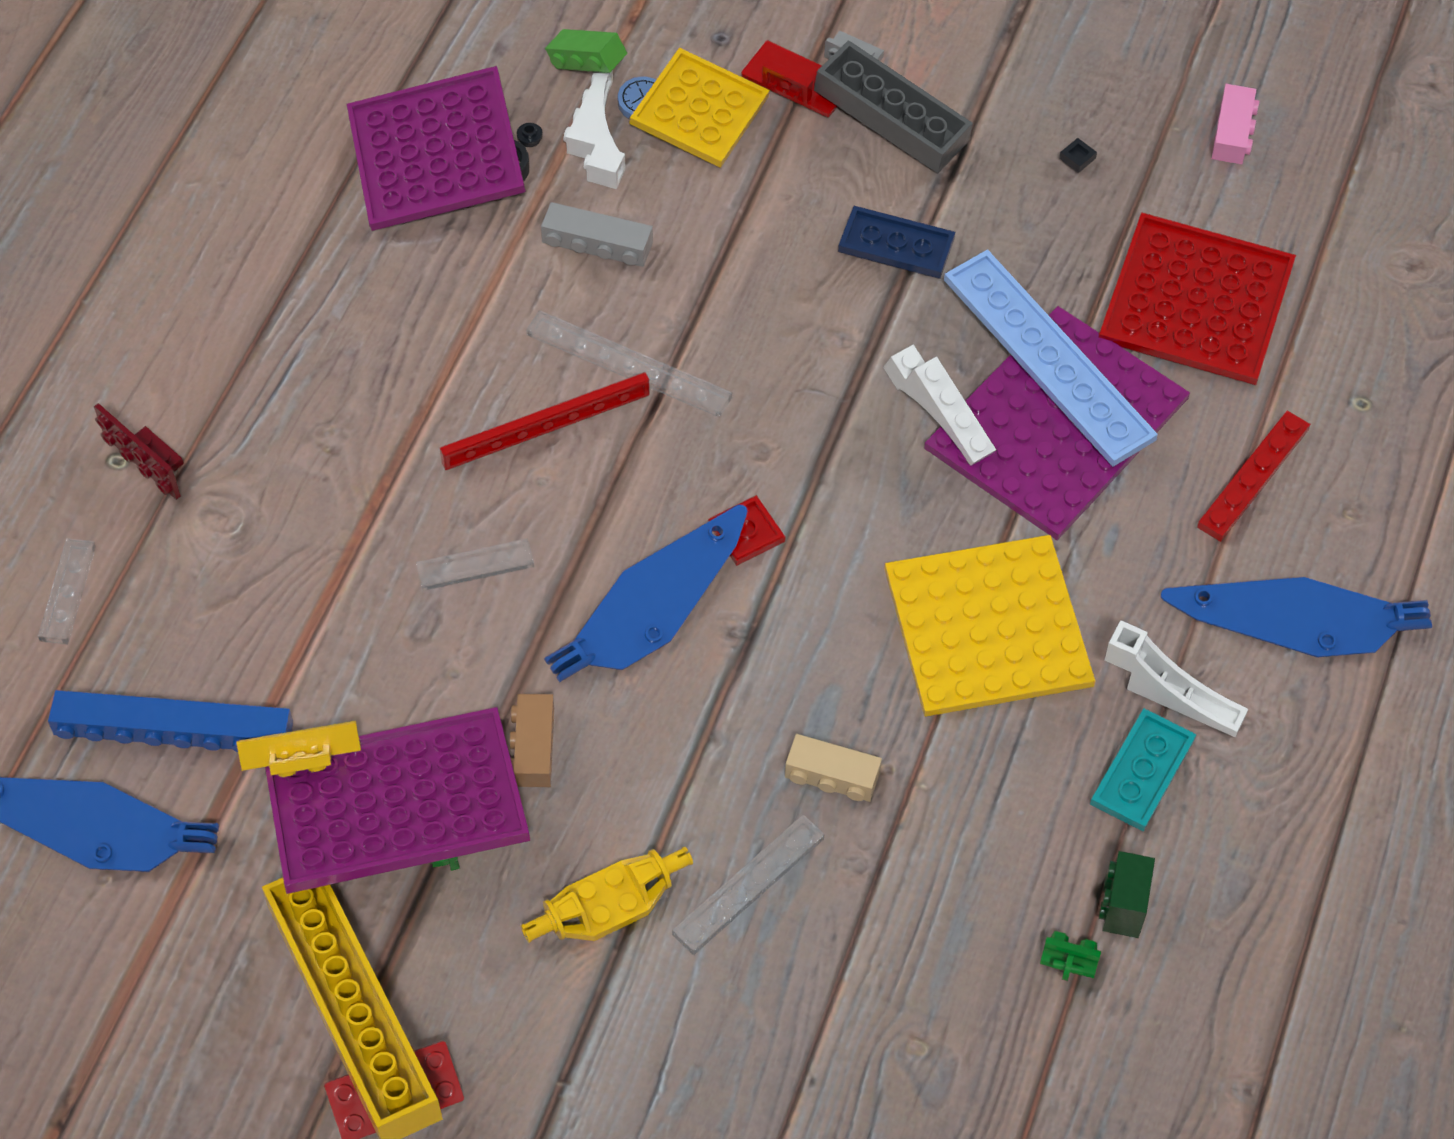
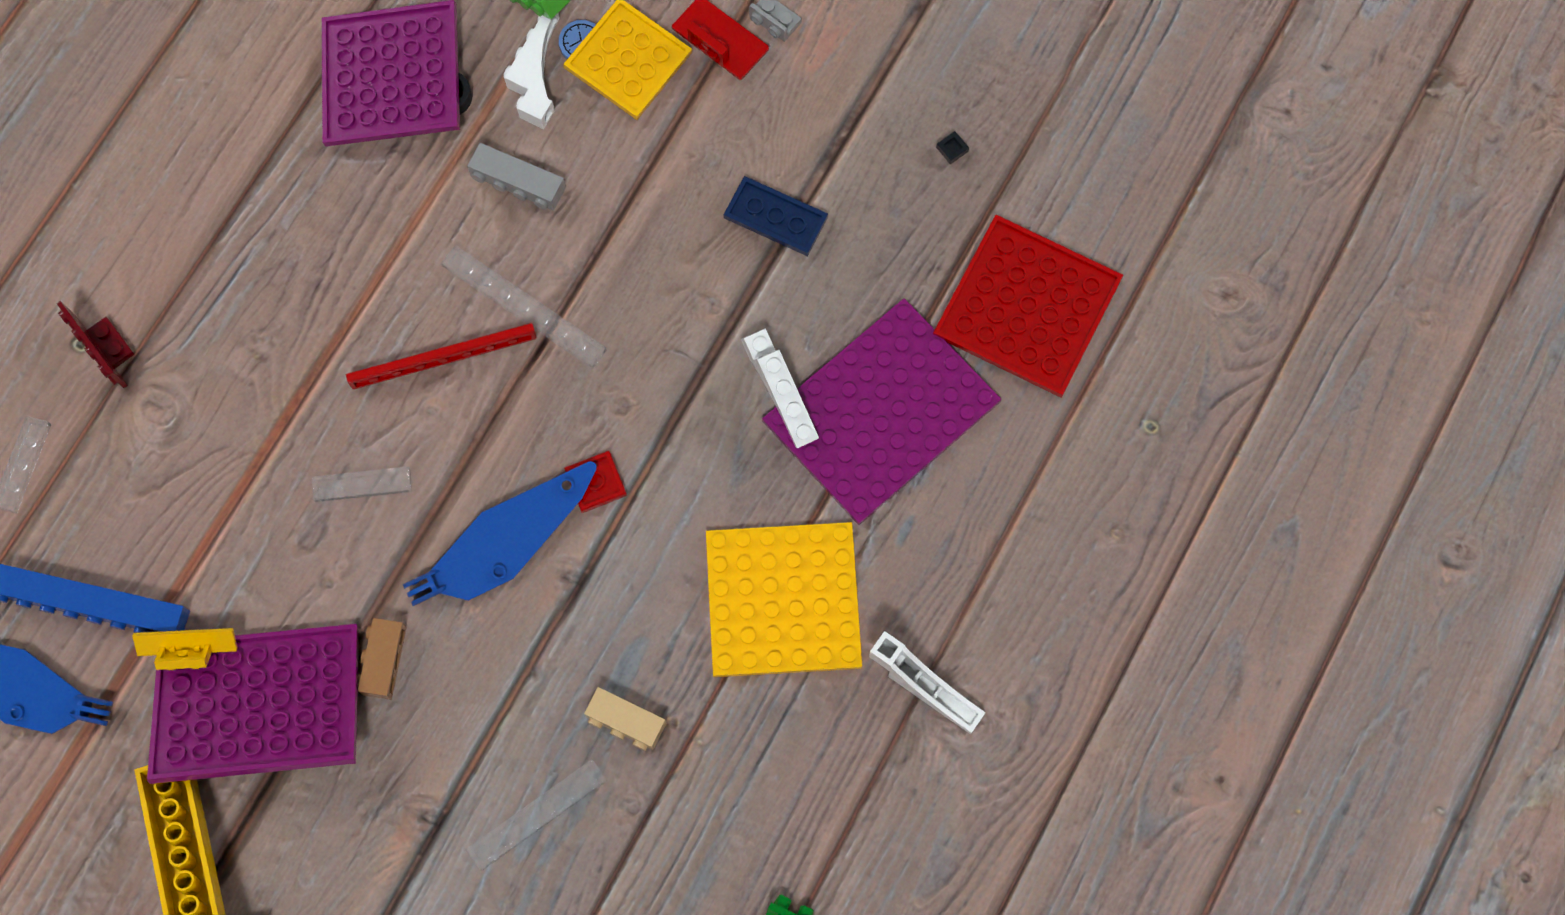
camera: 10 degrees right, 15 degrees up
(529, 134) = (478, 71): black plate -> none
(608, 898) = (417, 811): yellow plate -> none
(893, 106) = (795, 81): dark grey brick -> none
(1051, 358) = (884, 353): light blue plate -> none
(1126, 894) = (845, 874): dark green brick -> none
(1143, 769) = (885, 755): teal plate -> none
(1235, 124) = (1098, 133): bright pink brick -> none
(1253, 476) = (1040, 486): red plate -> none
(1301, 614) = (1050, 627): blue wing -> none

